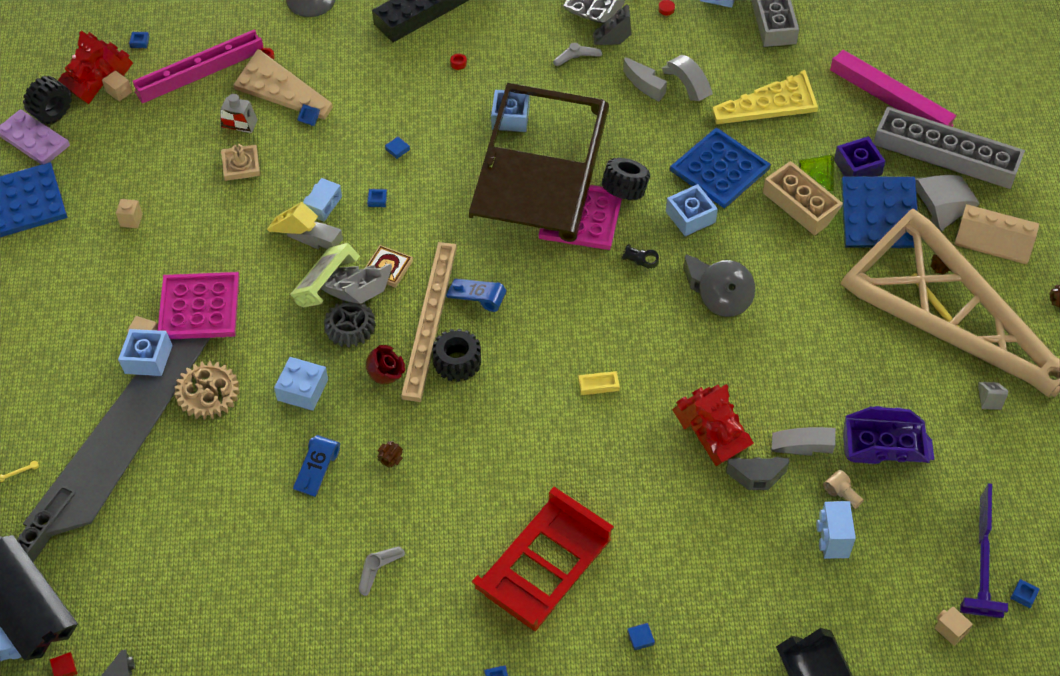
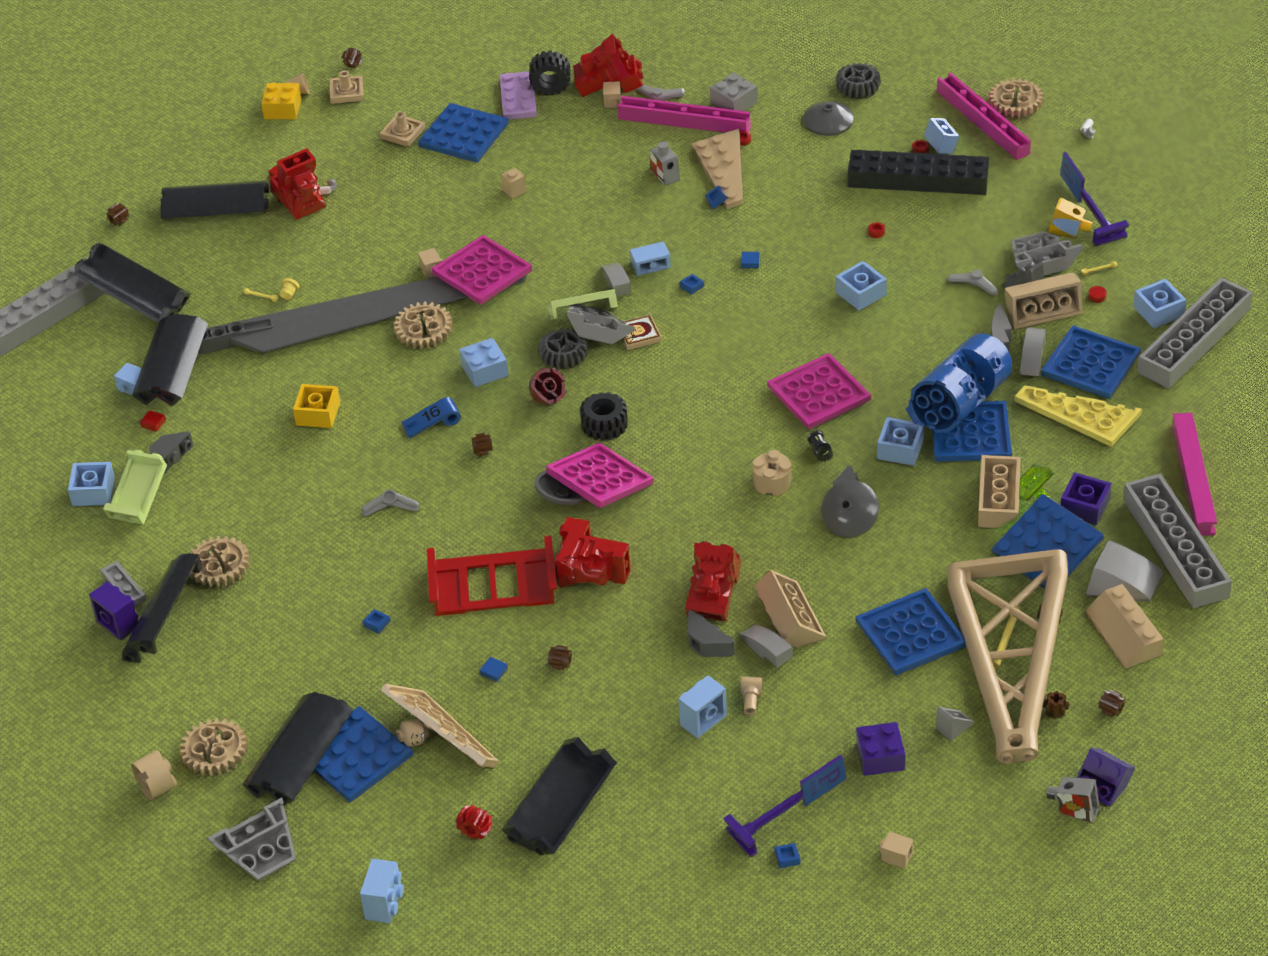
camera: 50 degrees right, 10 degrees down
(41, 446) = (288, 288): none -> light yellow piece
(139, 40) = (669, 73): blue tile -> none
(145, 352) = (410, 272): light blue brick -> none
(154, 61) = (660, 94): none -> light grey piece
(209, 532) = (316, 406): none -> yellow brick
(218, 23) = (734, 93): none -> light grey piece
(240, 162) = (628, 198): tan plate -> none
(294, 220) = (608, 255): light yellow slope -> none
(429, 322) = (621, 382): tan plate -> none
(488, 293) = (676, 391): blue door -> none
(505, 438) = (555, 491): none -> dark grey dish
(519, 406) = (599, 475): none -> dark pink plate
(537, 187) = (803, 349): dark brown door -> none
(598, 383) = (679, 505): light yellow tile -> none
(603, 482) = (590, 557): none -> red brick
(625, 178) = (878, 385): black tyre -> none
(636, 304) = (772, 473): none -> tan brick
(648, 33) = (1044, 300): none -> tan slope
(681, 582) = (559, 657): none -> reddish brown gear
(697, 144) = (959, 383): none -> blue cylinder
(729, 58) = (1091, 362): none -> blue plate
(784, 402) = (789, 609): none -> tan slope
(878, 349) = (910, 631): none -> blue plate
(886, 435) = (828, 684): dark purple slope -> none
(953, 625) = (703, 828): tan brick -> none
(979, 455) = (880, 748): none -> dark purple brick
(1035, 323) = (1055, 704): none -> reddish brown gear

